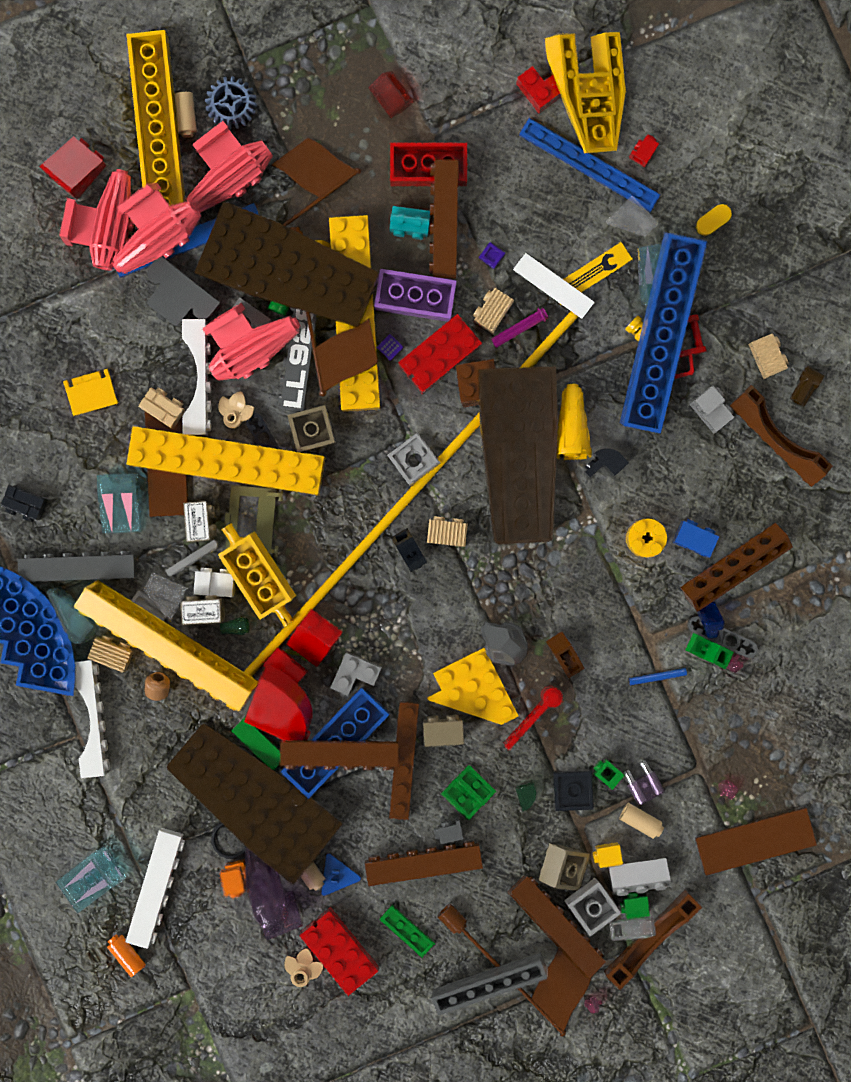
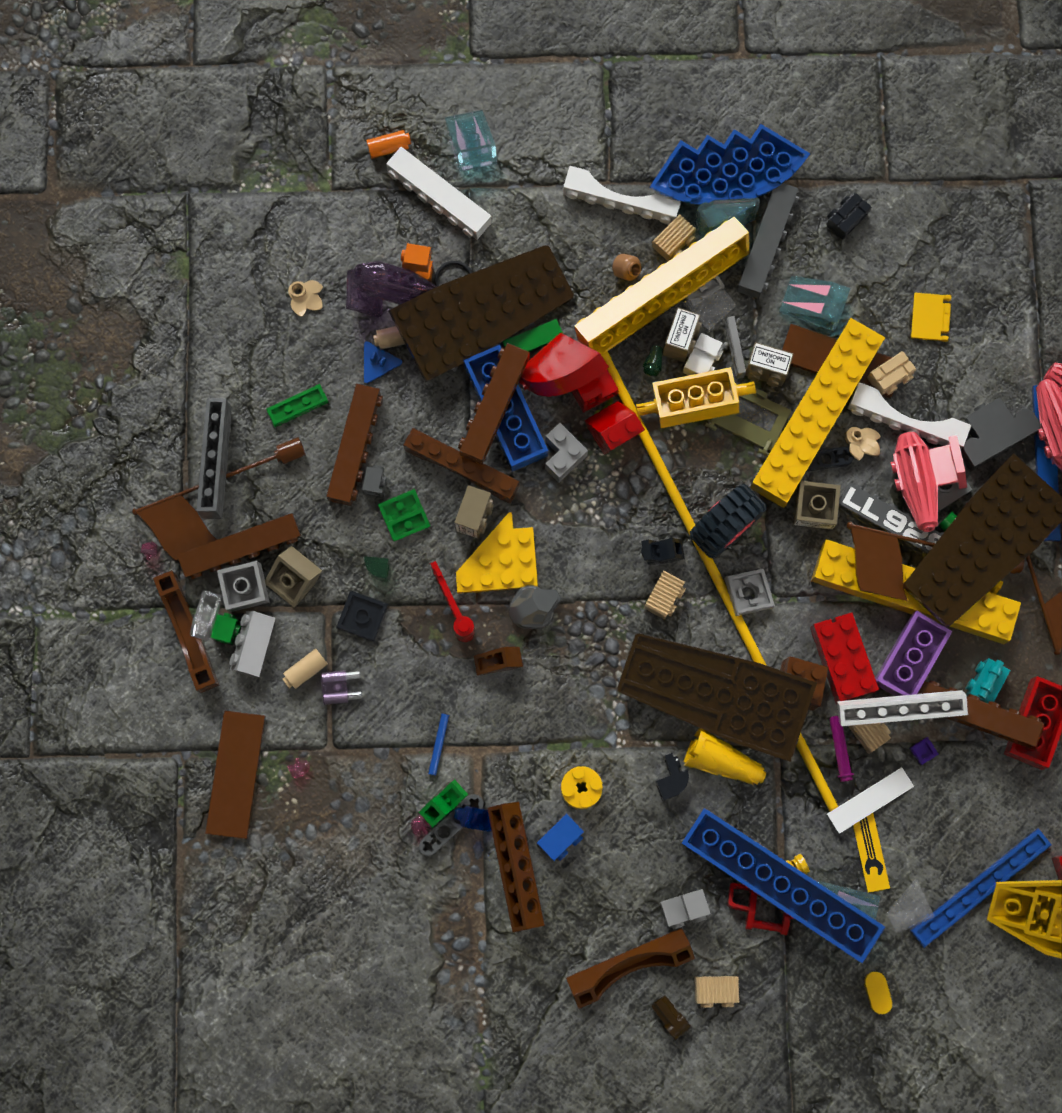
camera: 110 degrees right, 10 degrees down
(339, 951) = (306, 334): red piece -> none
(362, 502) = (727, 520): none -> black wheel
(389, 347) = (868, 614): dark purple tile -> none
(469, 287) = (902, 708): none -> white brick
(607, 855) = (286, 622): yellow brick -> none
(613, 778) = (358, 652): green brick -> none
(644, 150) = (976, 949): red brick -> none

